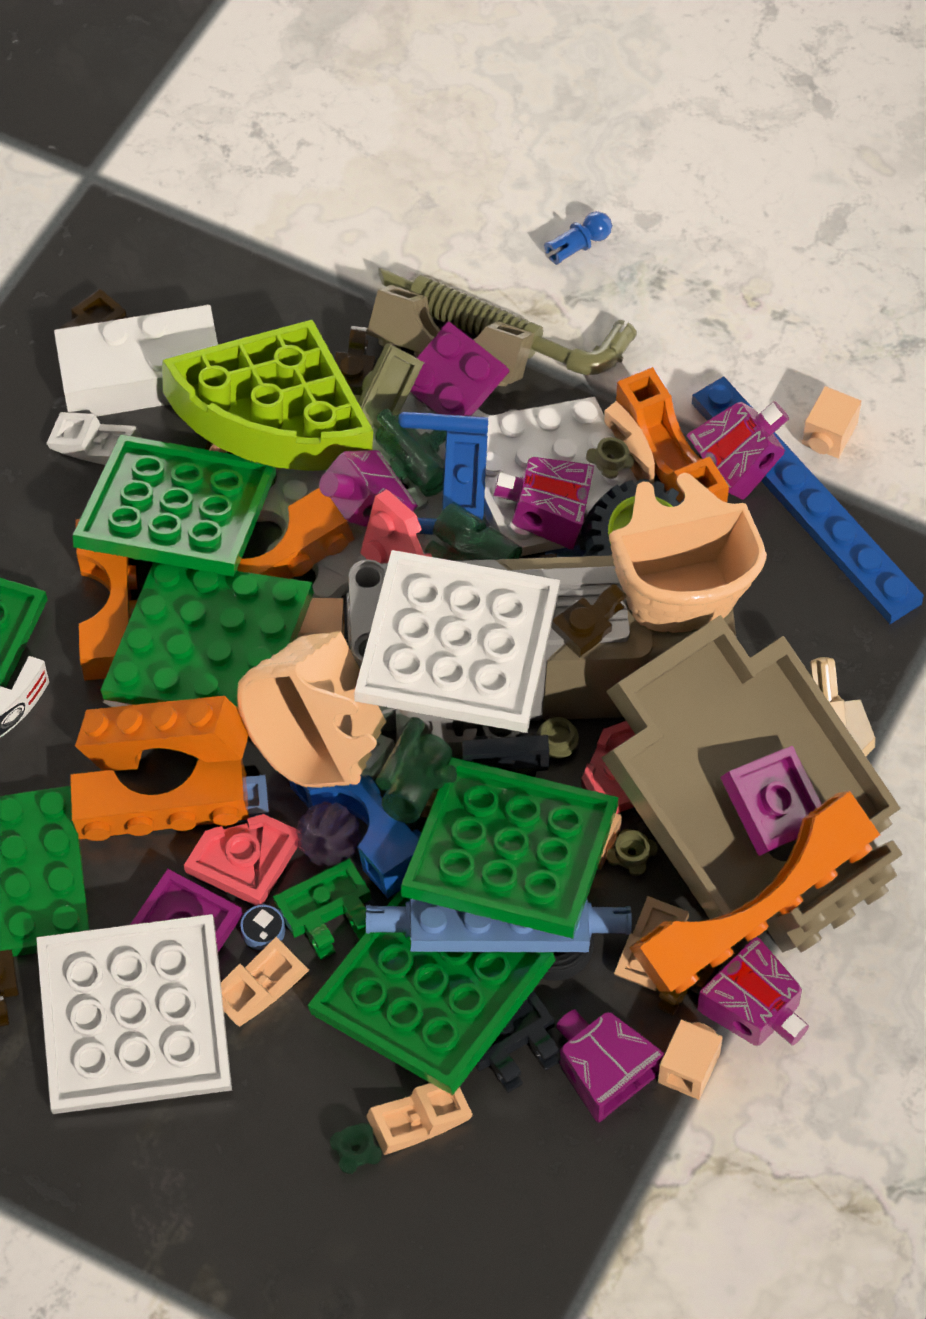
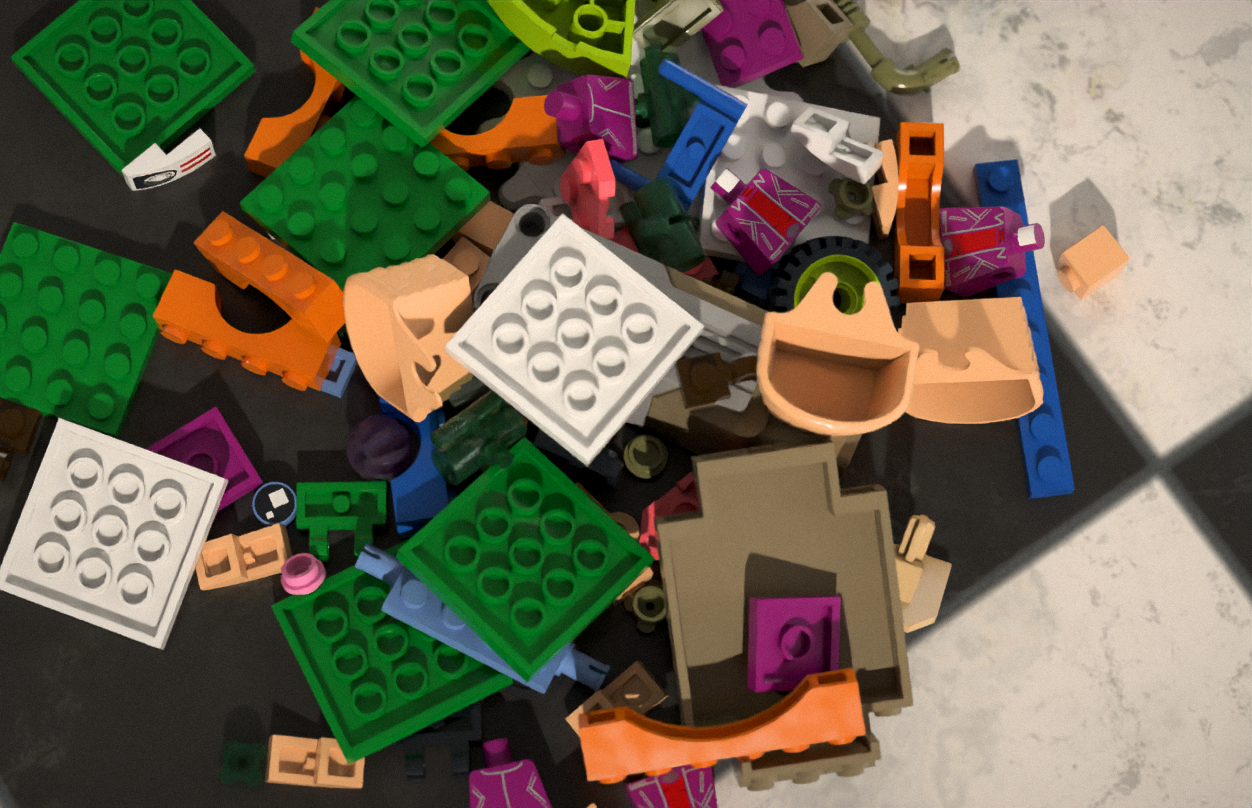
camera: 20 degrees right, 15 degrees up
(244, 857) = (294, 428): coral plate -> none
(321, 964) = (302, 574): none -> bright pink plate
(563, 421) = (826, 139): none -> white slope
(803, 530) = (972, 361): none -> light nougat piece

